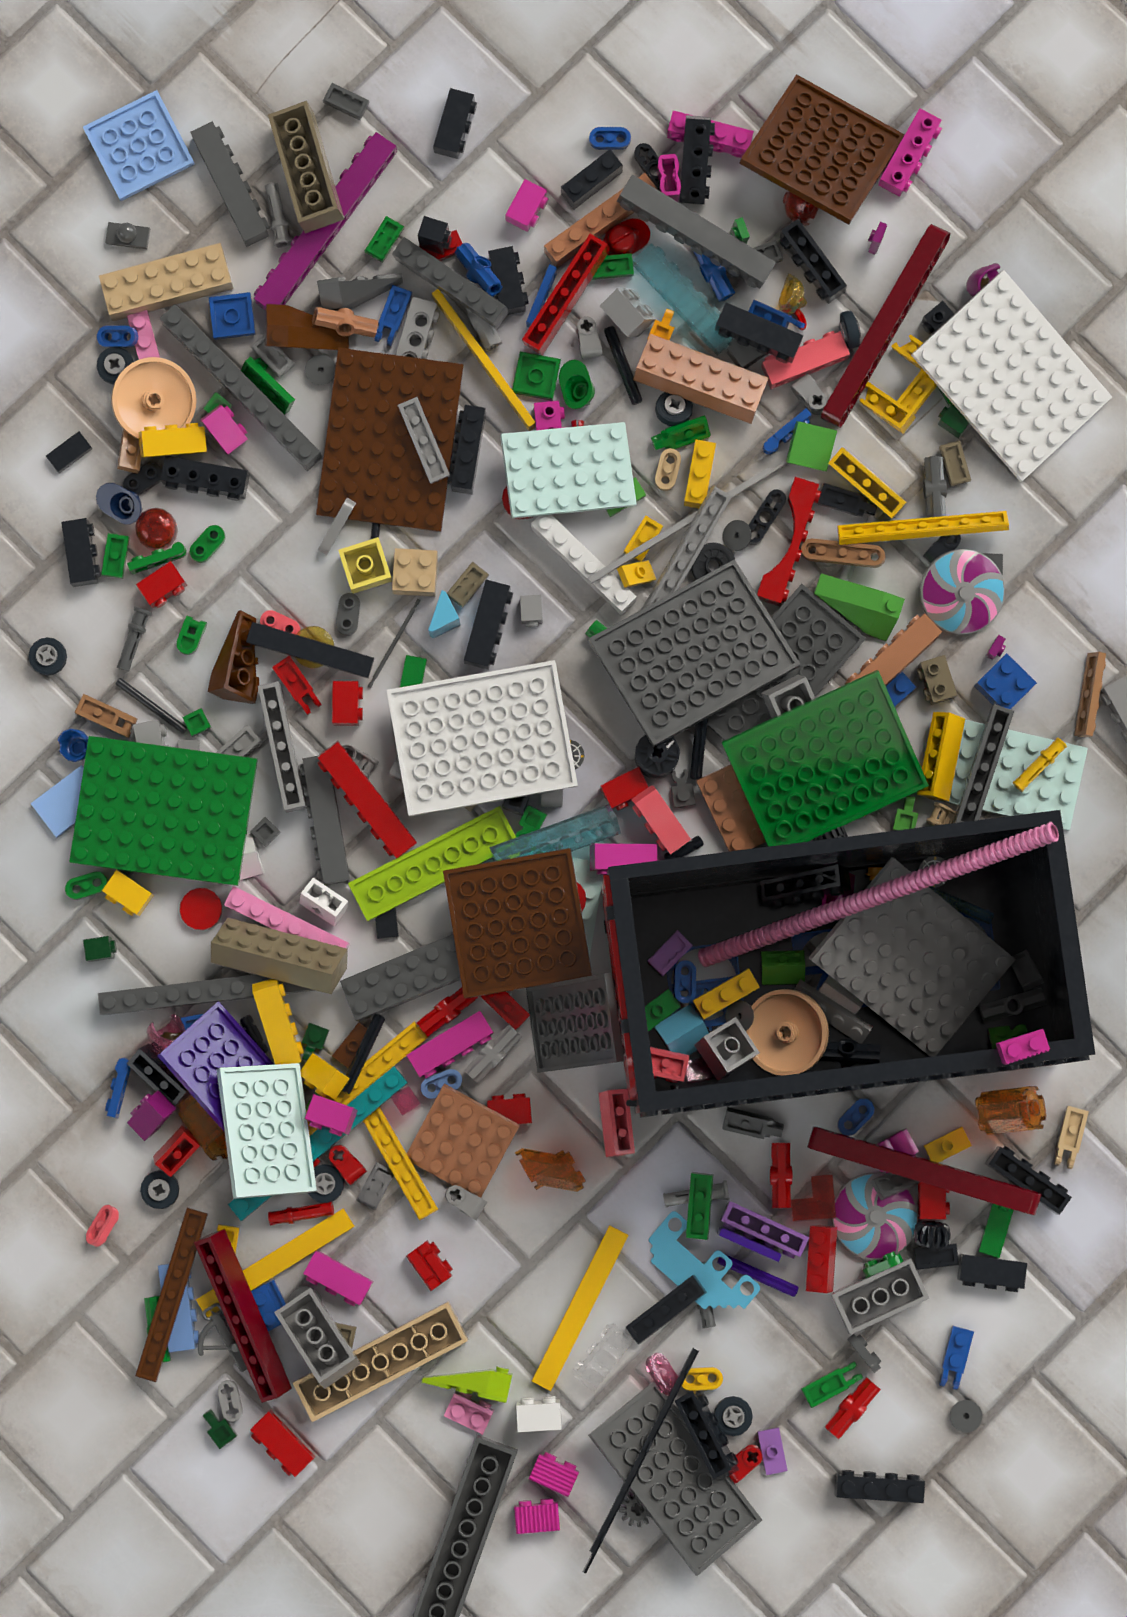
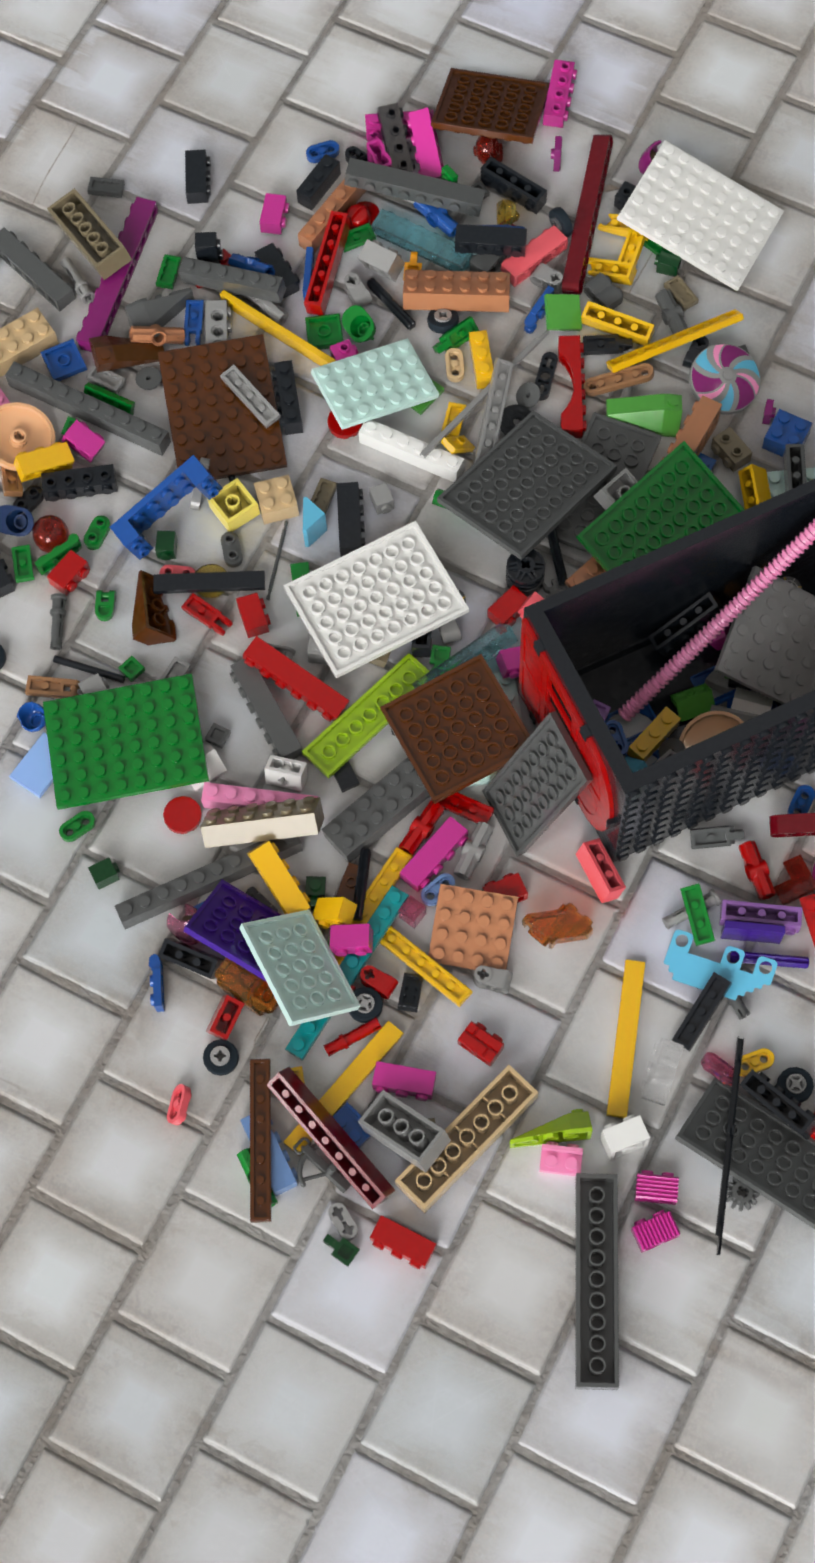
camera: 15 degrees left, 15 degrees down
(128, 893) = (115, 820): yellow brick -> none
(150, 1115) = (193, 993): magenta brick -> none
(241, 563) = (159, 501): none -> blue plate
(277, 587) = (166, 545): none -> dark green brick
(282, 747) = (210, 663): light grey brick -> none
(729, 179) = (426, 143): none -> dark pink brick
(867, 434) = (602, 291): none -> dark grey brick

